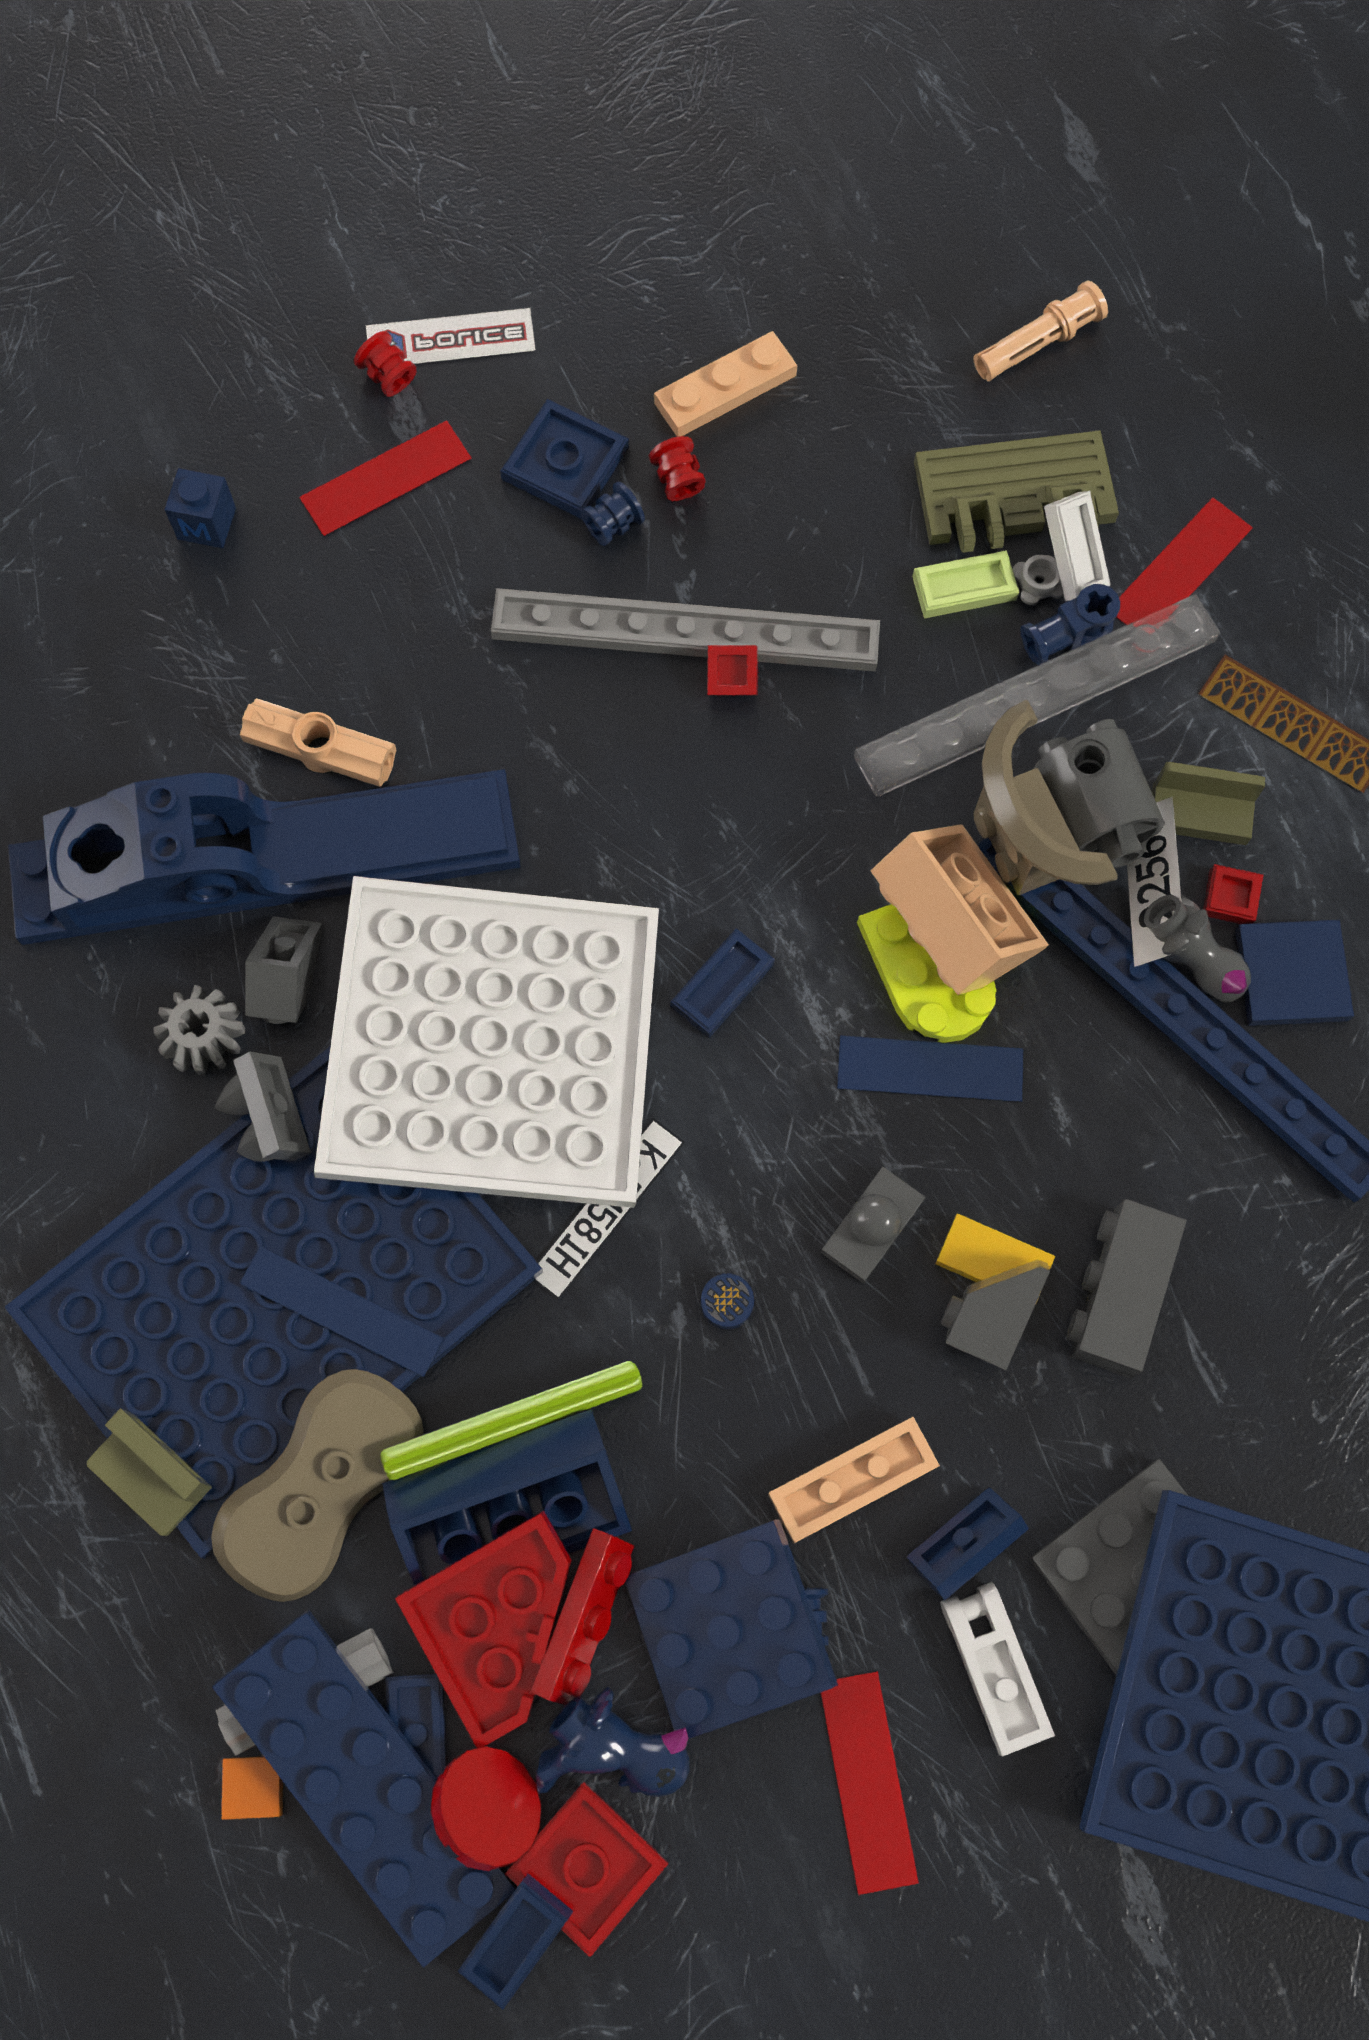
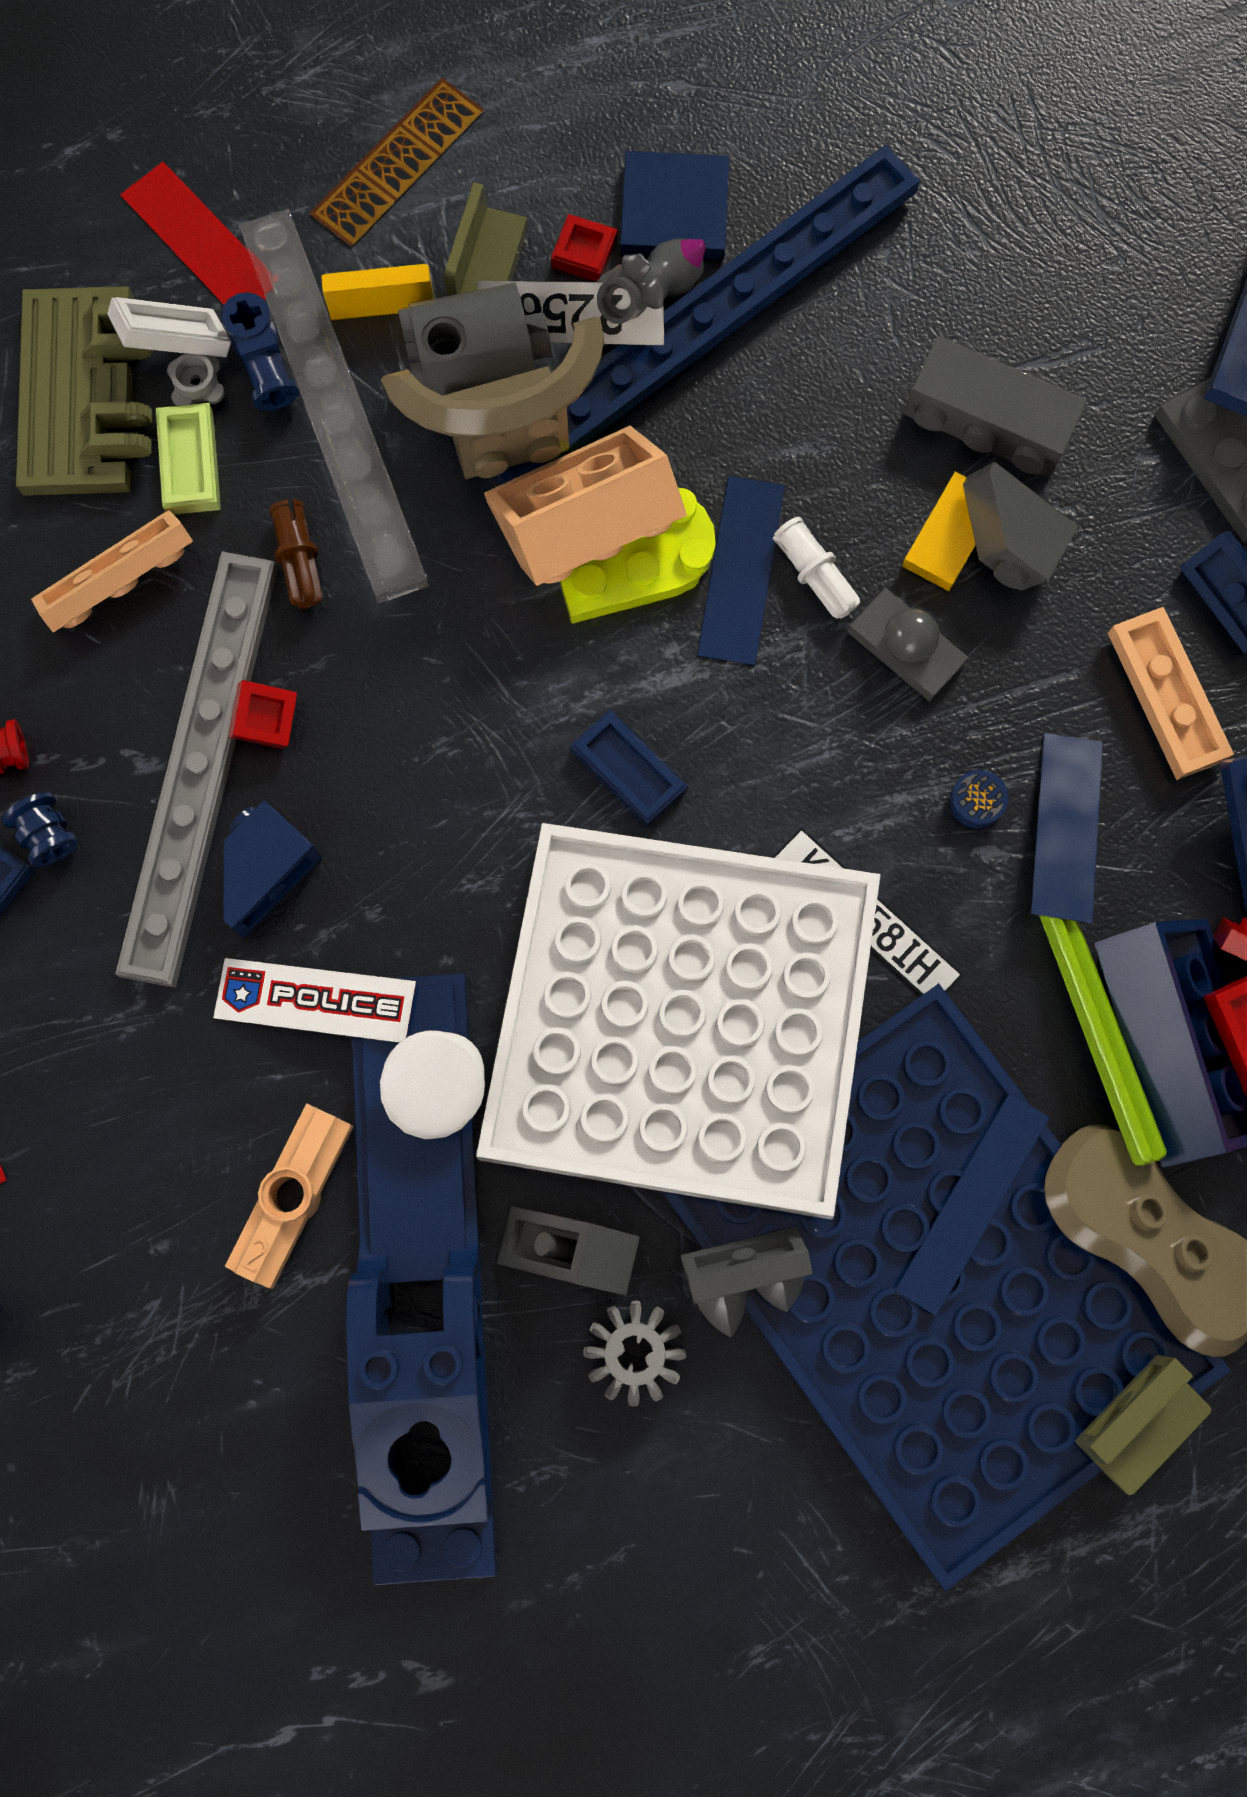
camera: 85 degrees left, 5 degrees up
(415, 837) = (432, 1084): none -> white piece
(485, 743) = (315, 1000): none -> white sticker
(597, 685) = (262, 865): none -> dark blue slope
(706, 1385) = (1067, 828): none -> dark blue sticker
(848, 536) = (112, 572): none -> light nougat plate
(885, 680) = (296, 553): none -> reddish brown axle
(937, 1132) = (816, 567): none -> white axle
(1149, 716) = (375, 290): none -> yellow tile

